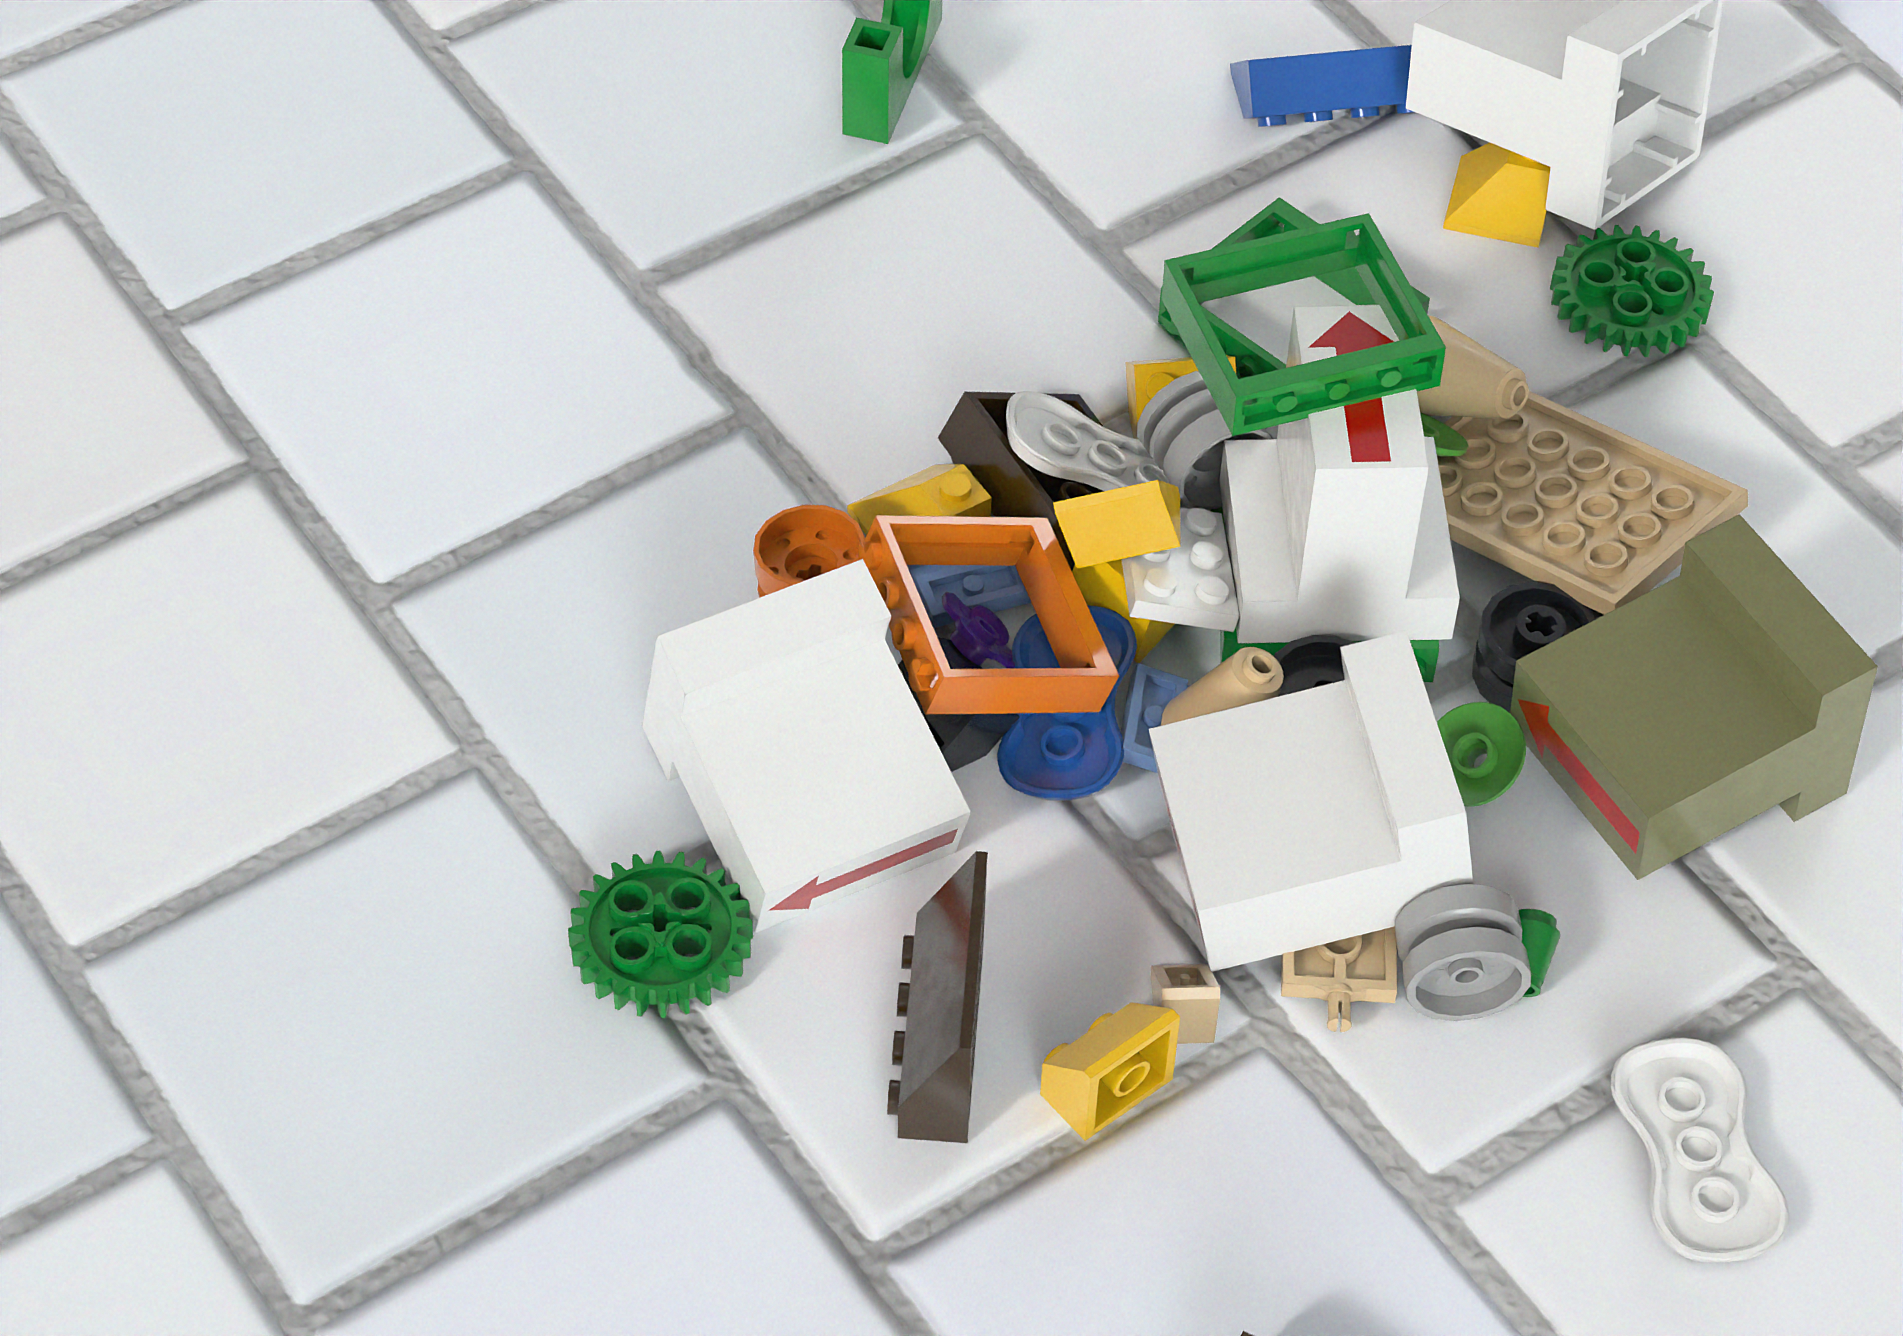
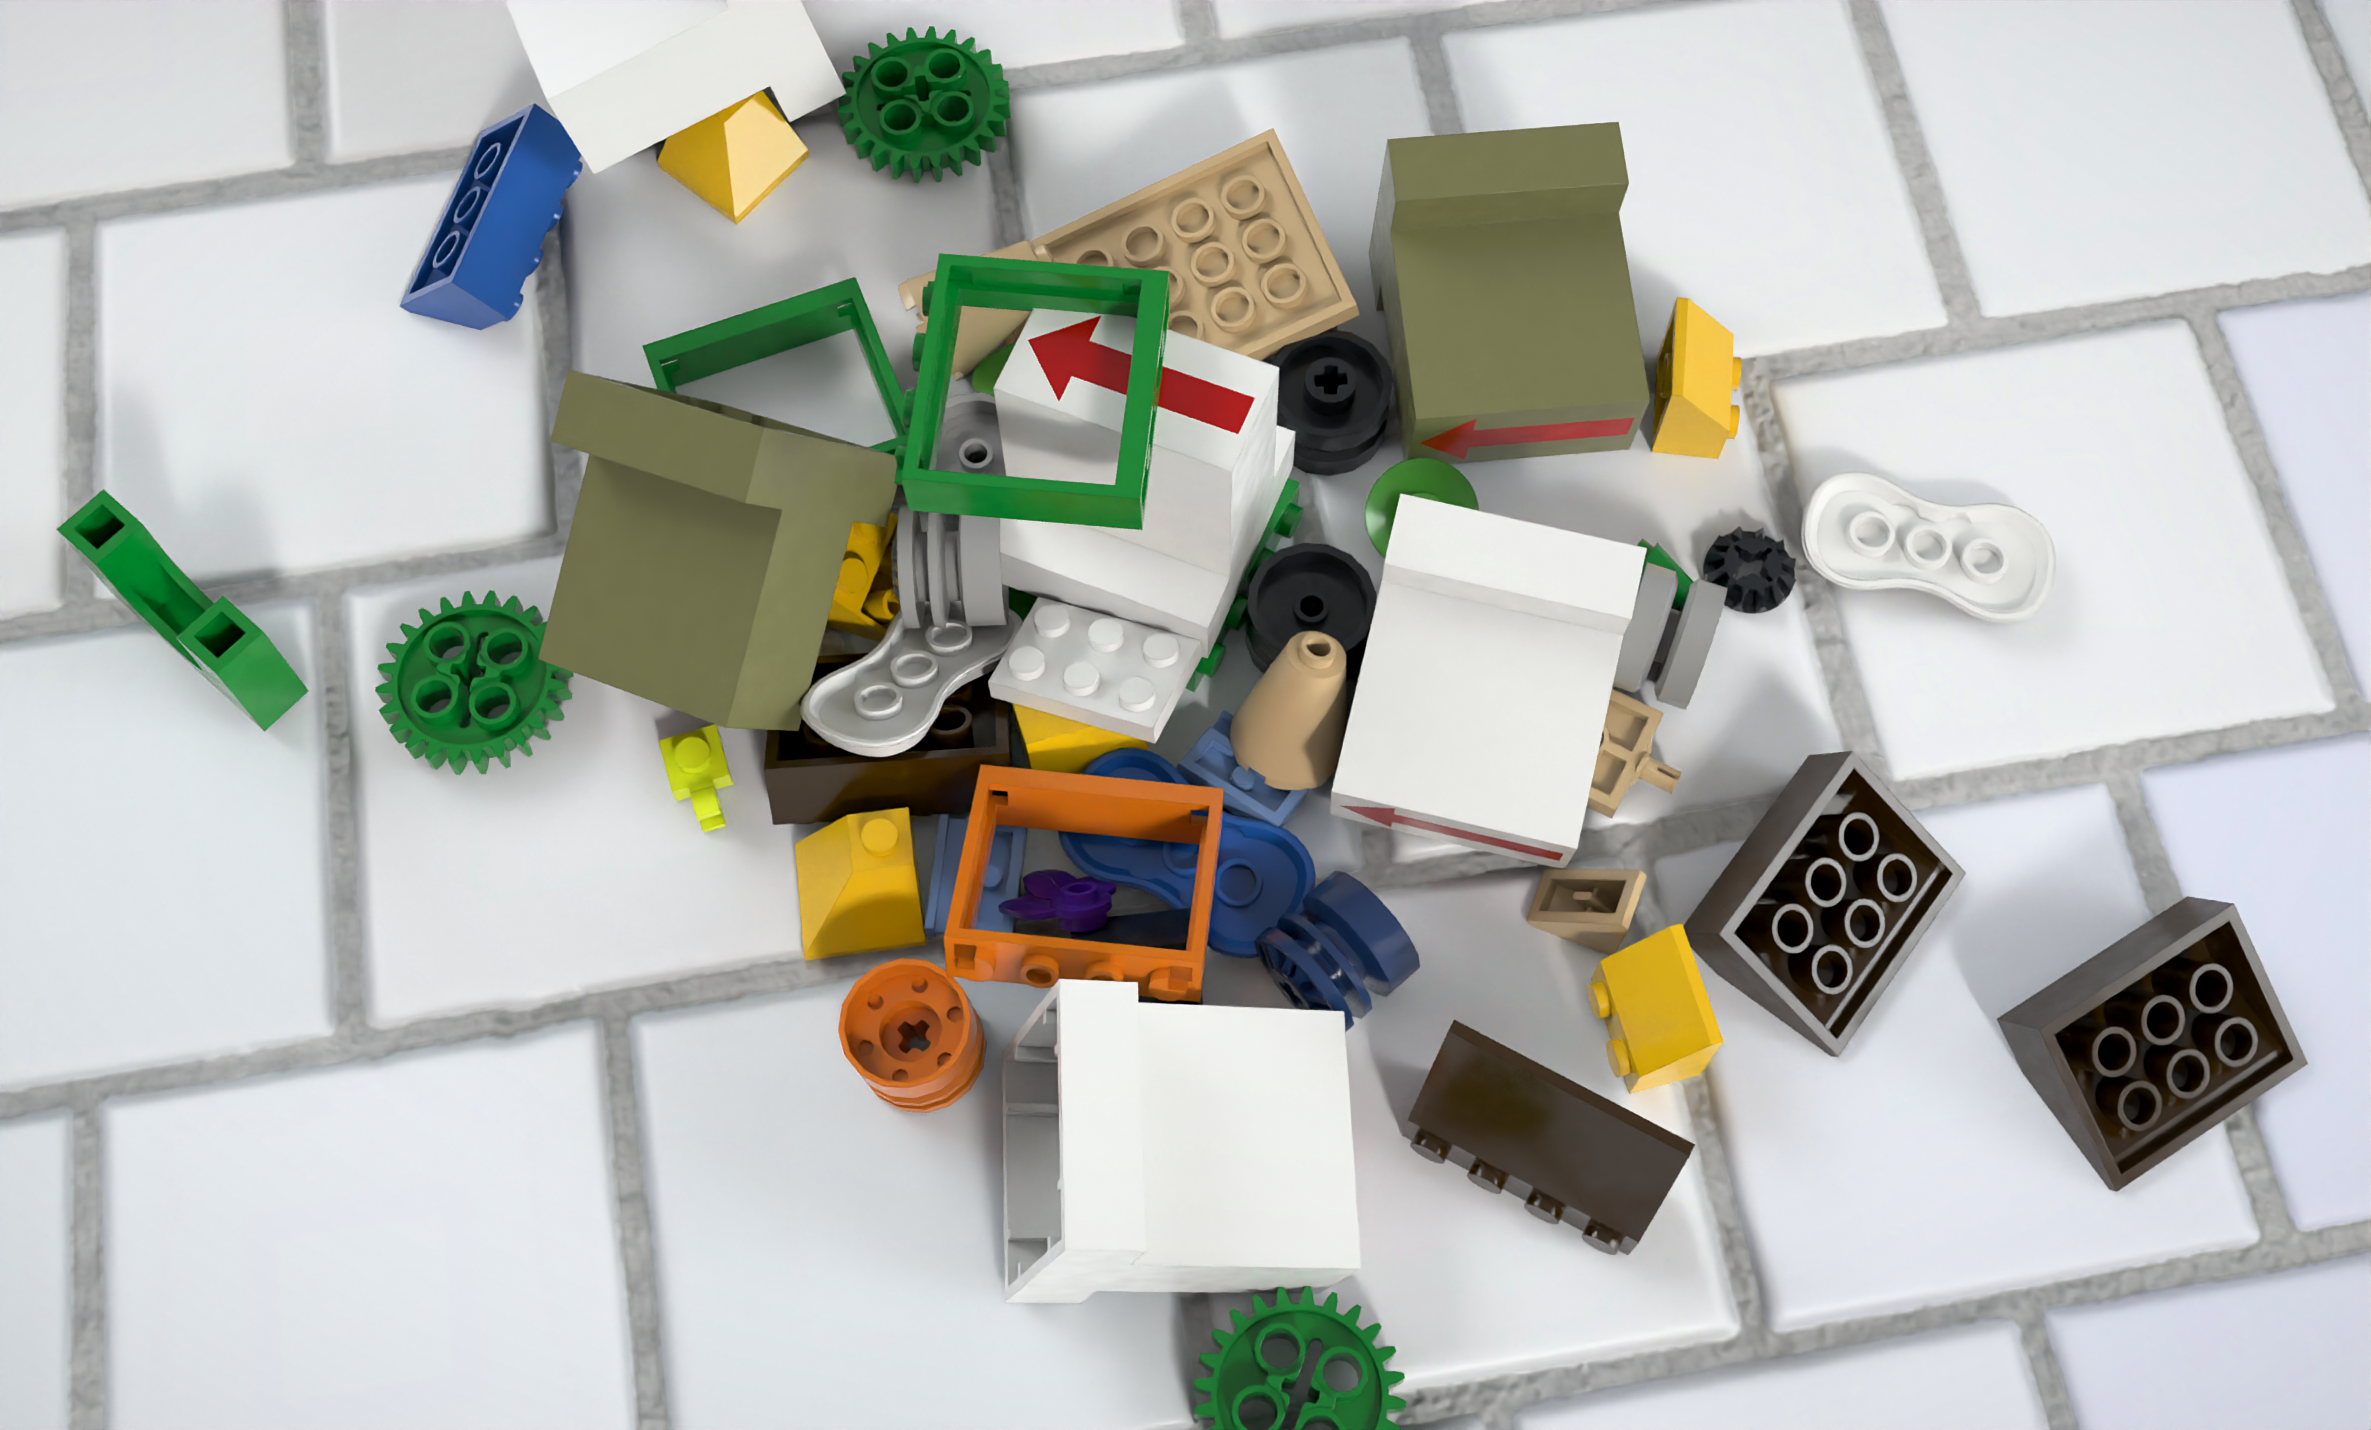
camera: 65 degrees left, 15 degrees up
(948, 225) = (423, 678): none -> green gear
(950, 381) = (696, 770): none -> neon yellow plate
(1018, 812) = (1339, 951): none -> dark blue wheel
(1082, 269) = (704, 549): none -> olive piece
(1121, 522) = (1045, 691): yellow slope -> none
(1292, 1172) = (1824, 900): none -> dark brown slope
(1604, 1041) = (1751, 592): none -> black gear
(1735, 901) = (1695, 385): none -> yellow slope

